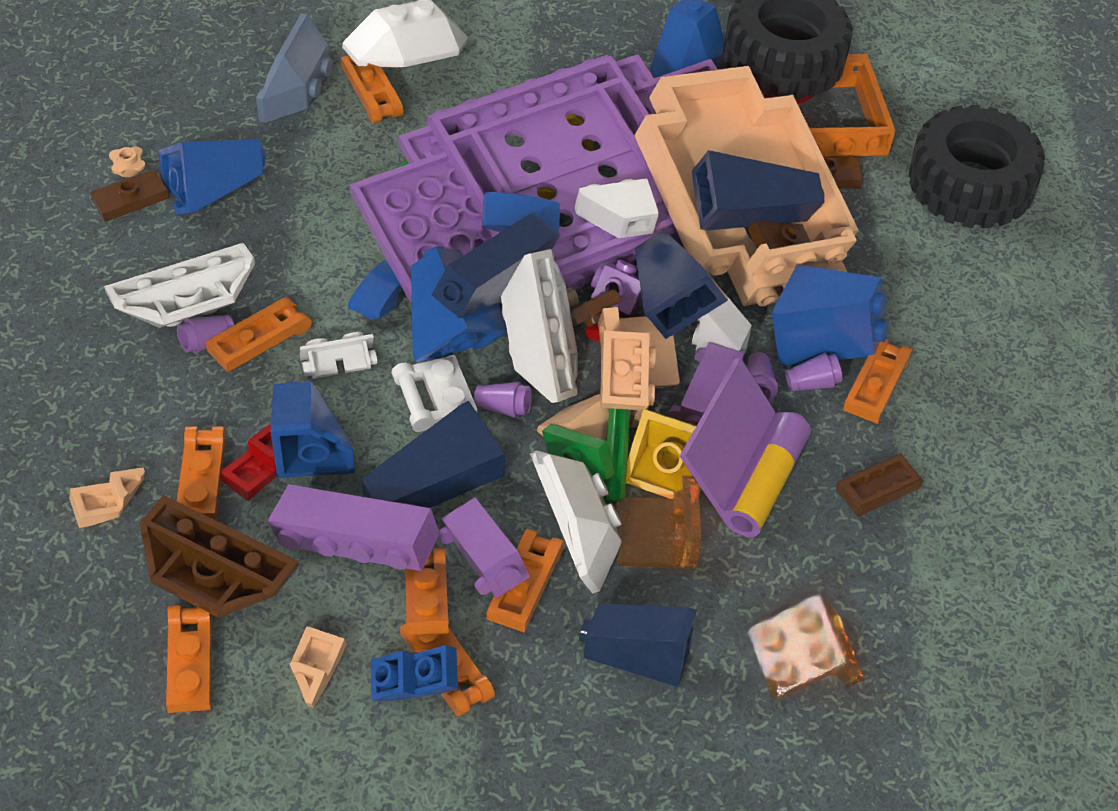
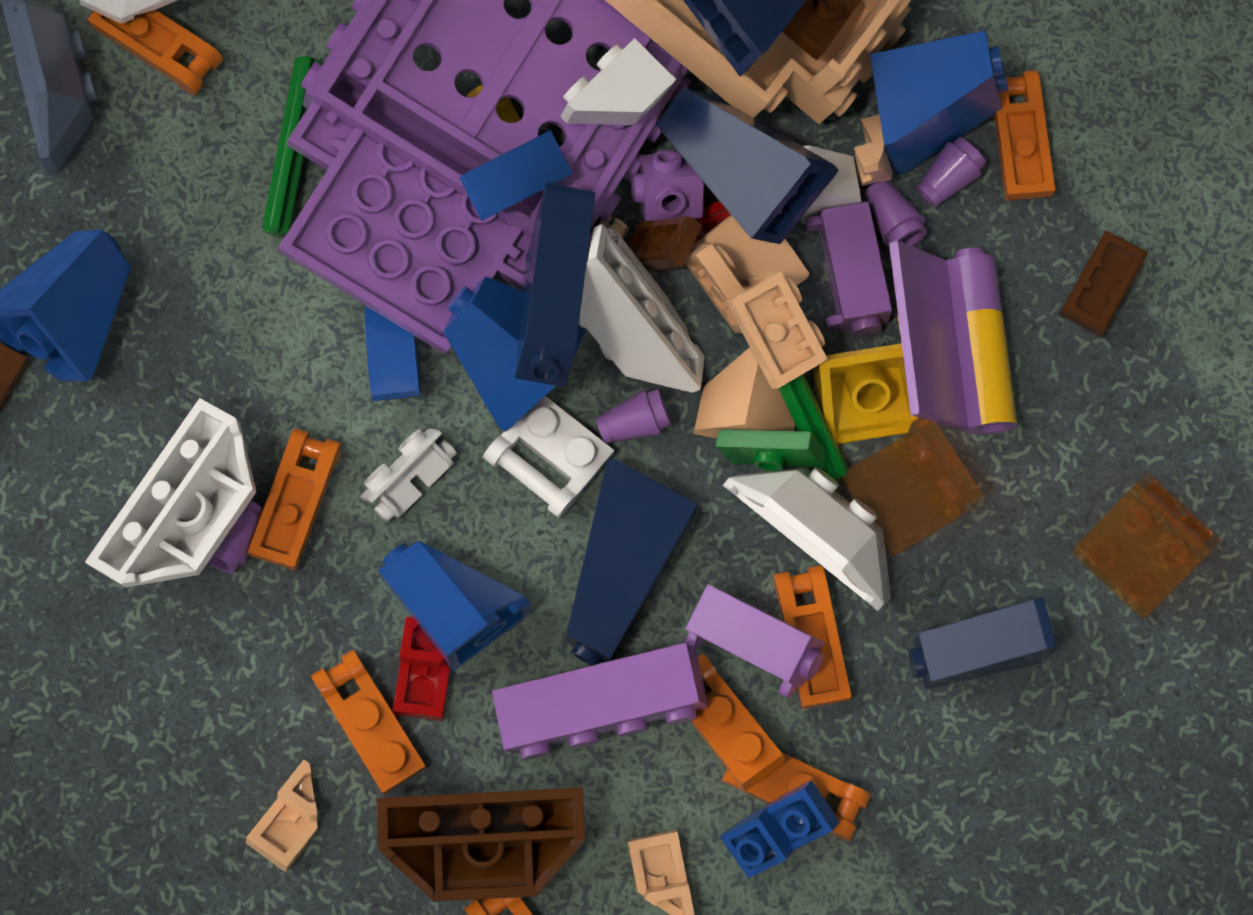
camera: 30 degrees left, 25 degrees up
(762, 334) = (872, 157): none -> light nougat slope

